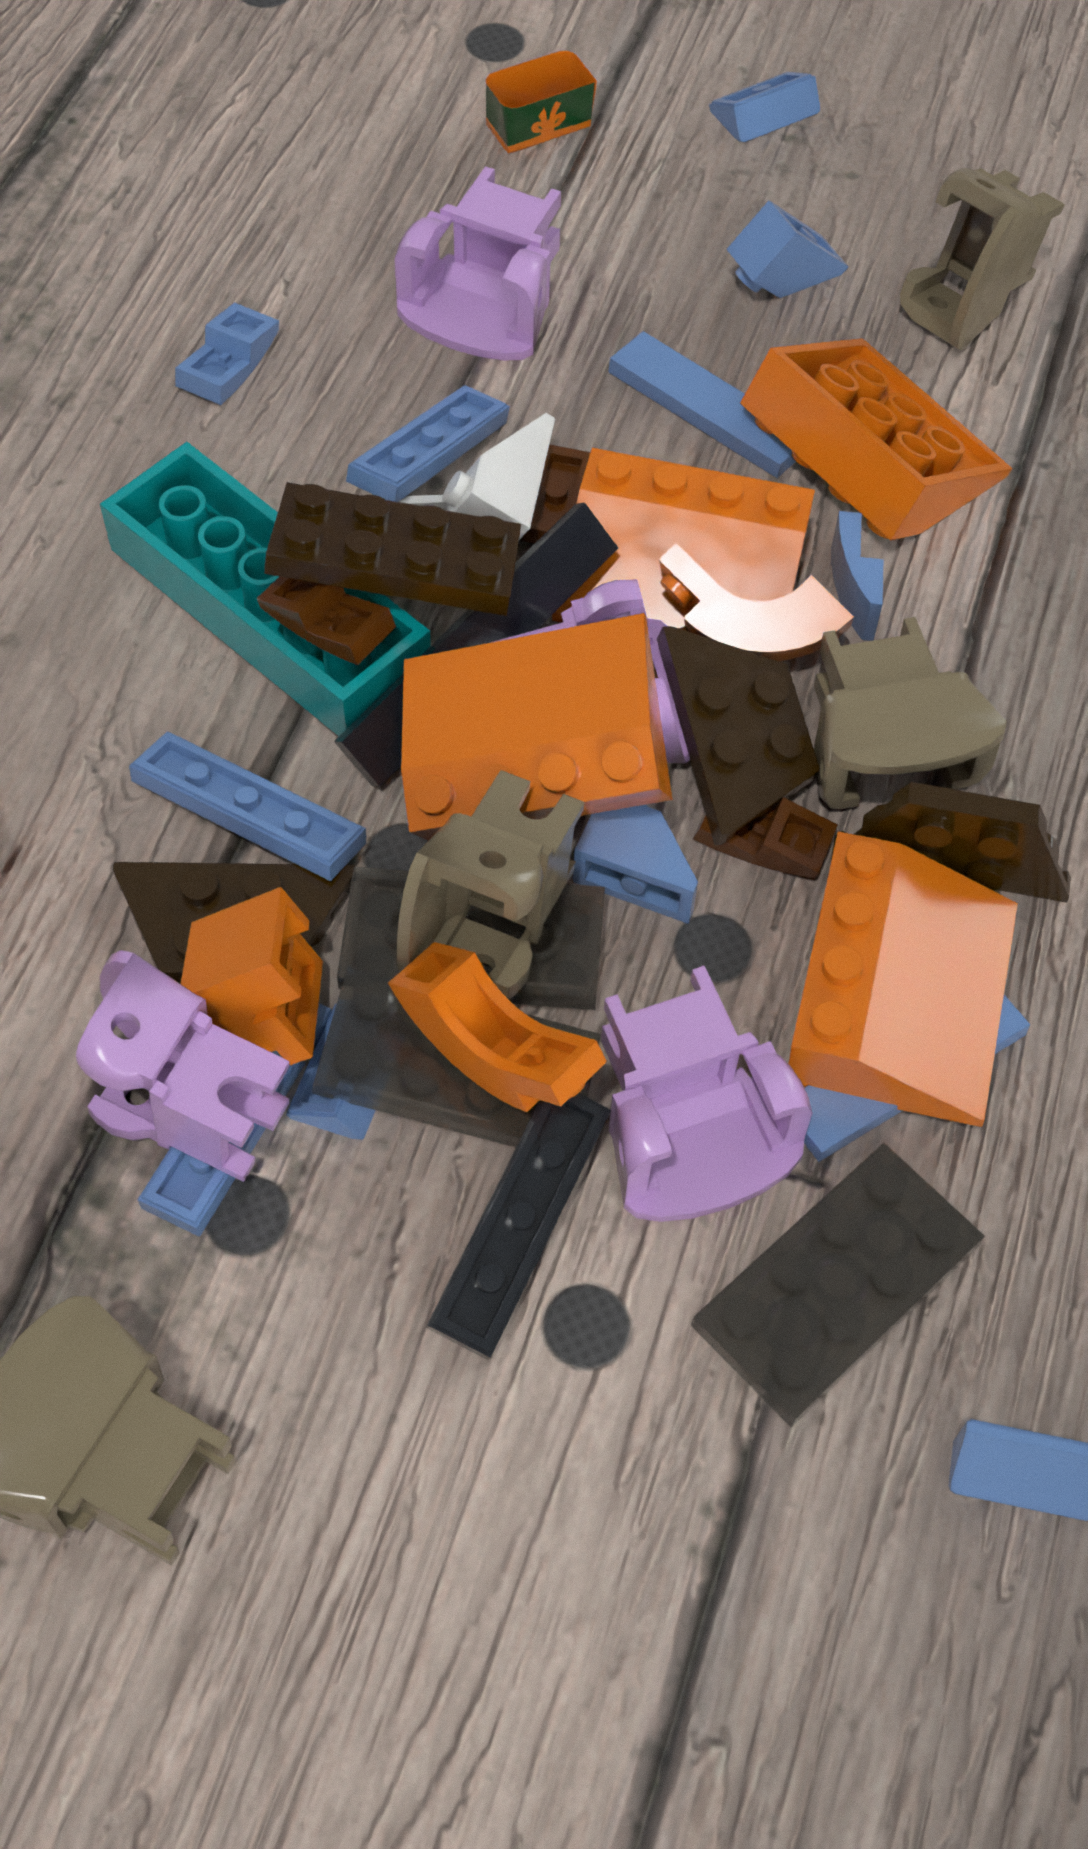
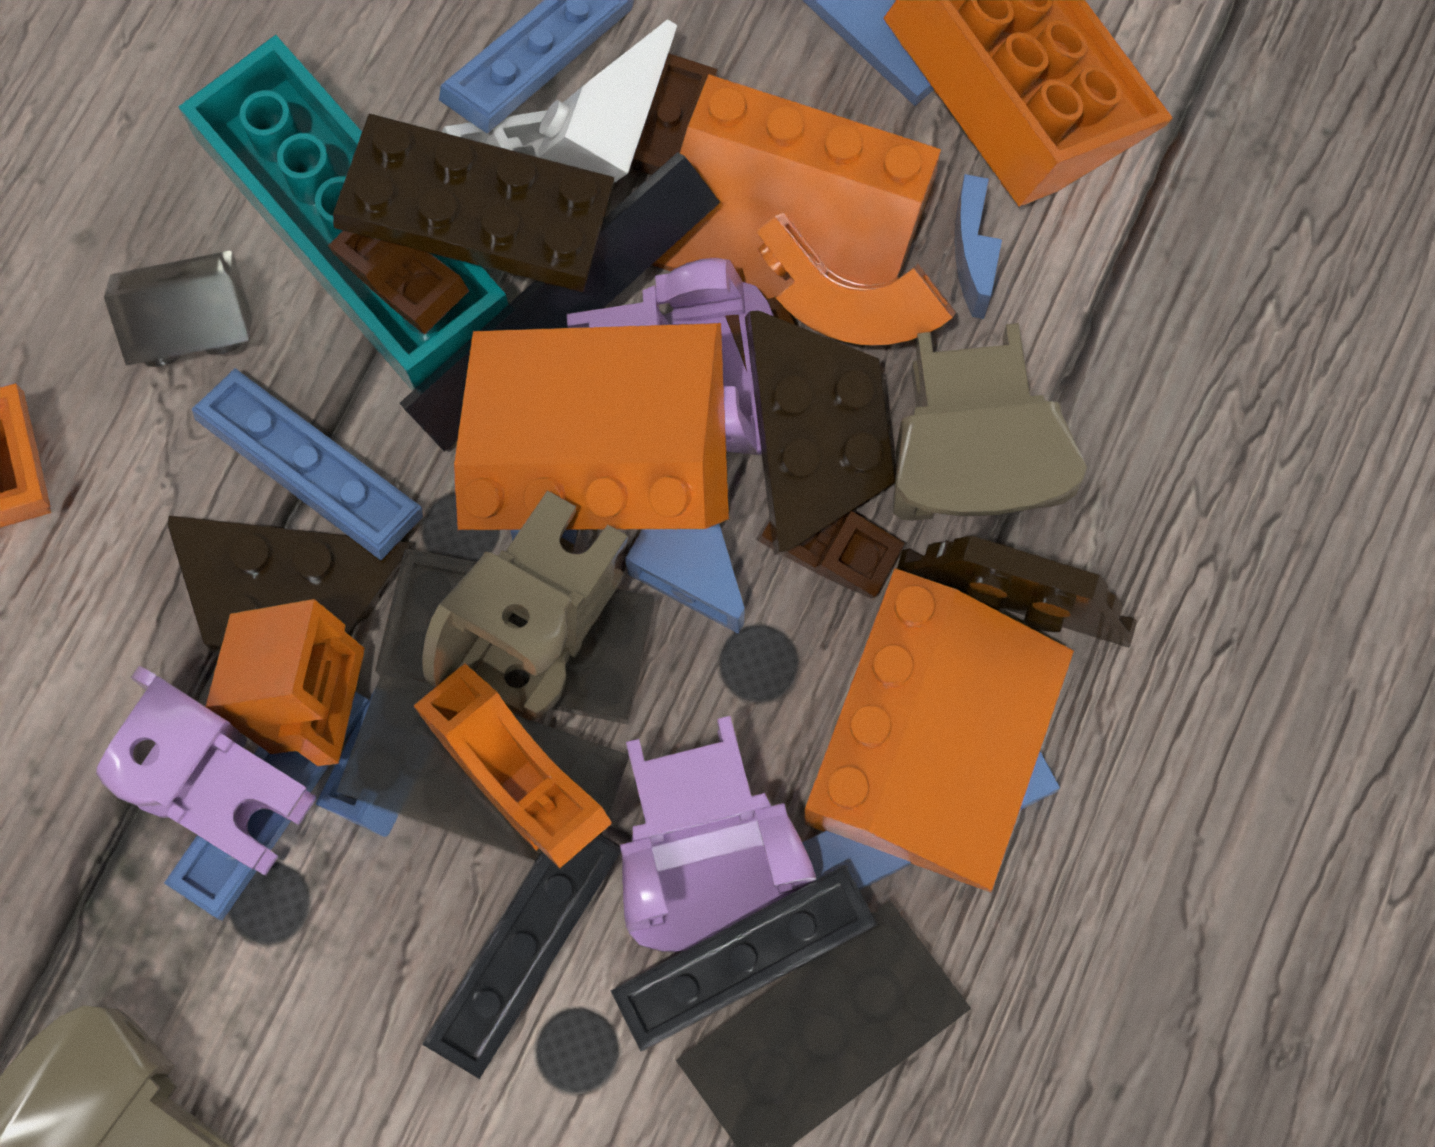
camera: 10 degrees right, 15 degrees up
(111, 680) = (179, 309): none -> clear smoke brick
(747, 1210) = (744, 958): none -> black tile

